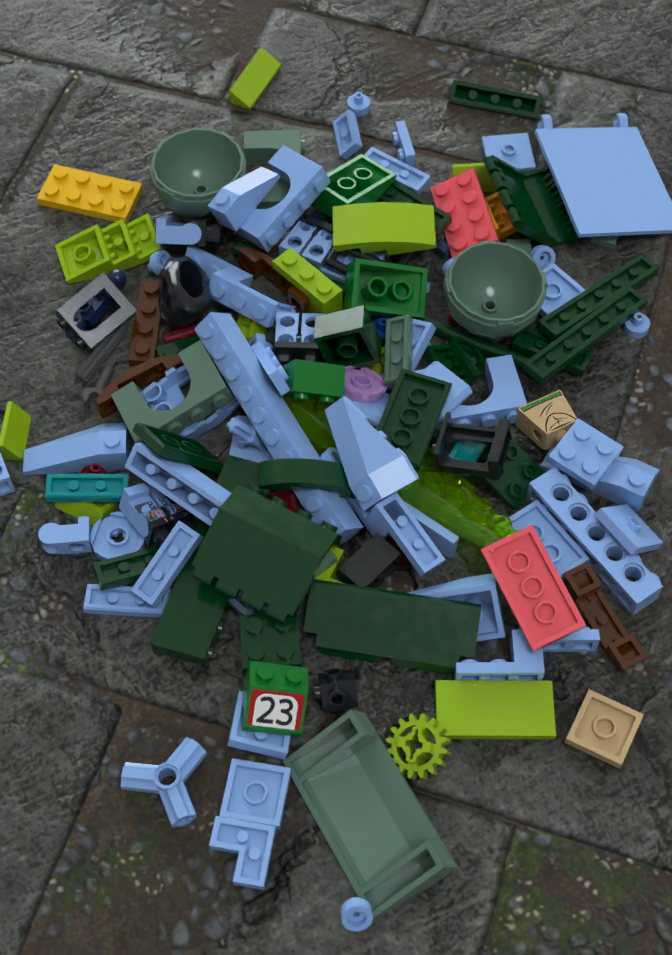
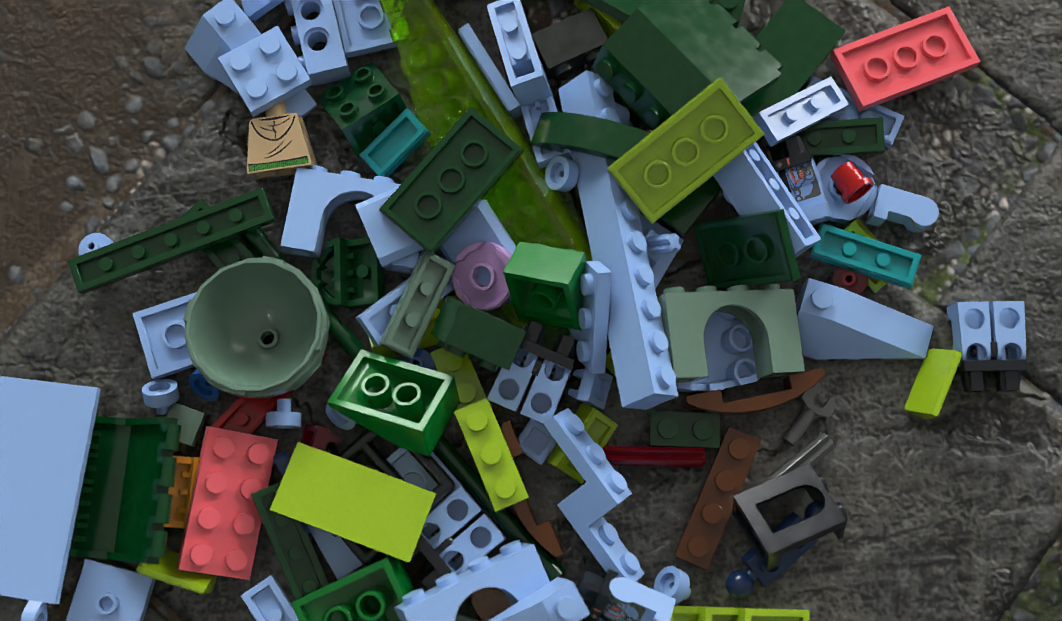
camera: 160 degrees left, 20 degrees up
(94, 647) = (904, 58): none -> coral plate
(112, 529) = (851, 182): none -> red piece
(182, 291) = (660, 505): black piece -> none
(244, 473) = (685, 150): none -> lime tile
(368, 459) = (532, 131): light blue wedge -> none
(428, 260) = (318, 437): none -> dark red tile
(450, 433) = (382, 82): black panel -> none
(575, 310) = (120, 298): dark green plate -> none

